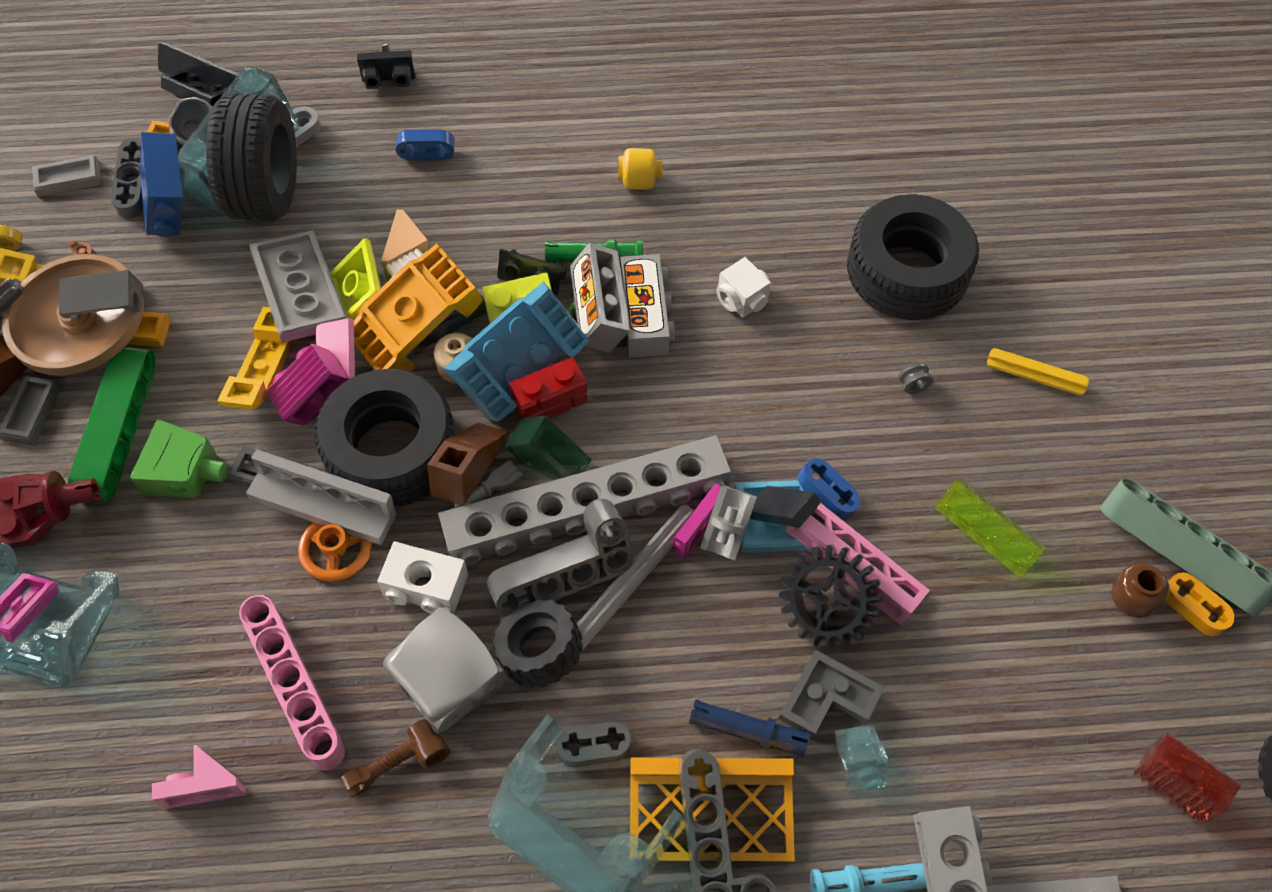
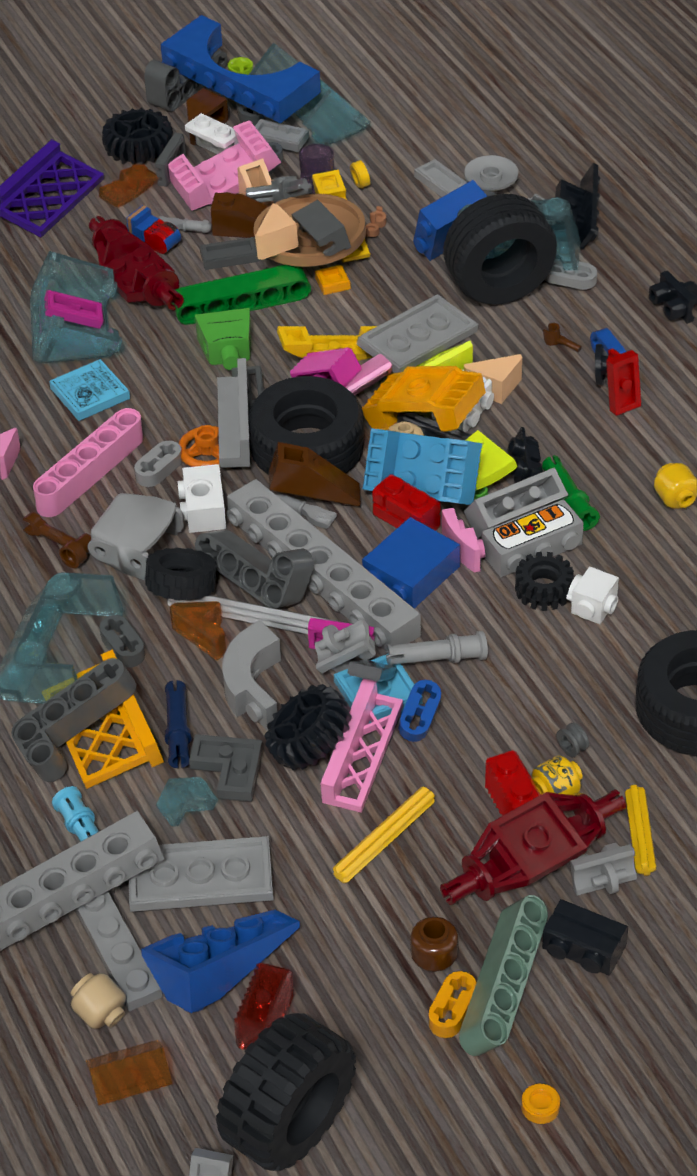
camera: 70 degrees right, 15 degrees down
(73, 338) = (276, 233): none -> light nougat slope
(97, 129) = (491, 172): none -> light grey dish
(158, 639) = (89, 389): none -> medium azure tile
(339, 603) = (154, 467): none -> light grey beam
(370, 180) = (554, 337): none -> reddish brown hand
(470, 143) = (622, 378): none -> red piece
(546, 448) = (353, 526): clear green slope -> none
(615, 657) = (200, 625): none -> clear orange slope
(625, 416) = (413, 561): none -> blue brick
(627, 364) = (470, 548): none -> bright pink slope
(707, 304) = (547, 568): none -> black tyre
(708, 638) = (243, 661): none -> light grey arch
(760, 430) = (451, 648): none -> light grey pin
(961, 412) = (558, 776): none -> yellow head
(968, 450) = (509, 782): none -> red brick
(972, 584) = (383, 834): none -> yellow axle
(975, 768) = (205, 875): none -> light grey plate
(990, 528) = (443, 829): clear neon green plate -> none
(1052, 460) = (532, 843): none -> dark red plate
(1078, 431) = (603, 869): none -> light grey hips
(1093, 806) = (209, 965): none -> blue wedge
(1160, 461) = (584, 938): none -> black brick

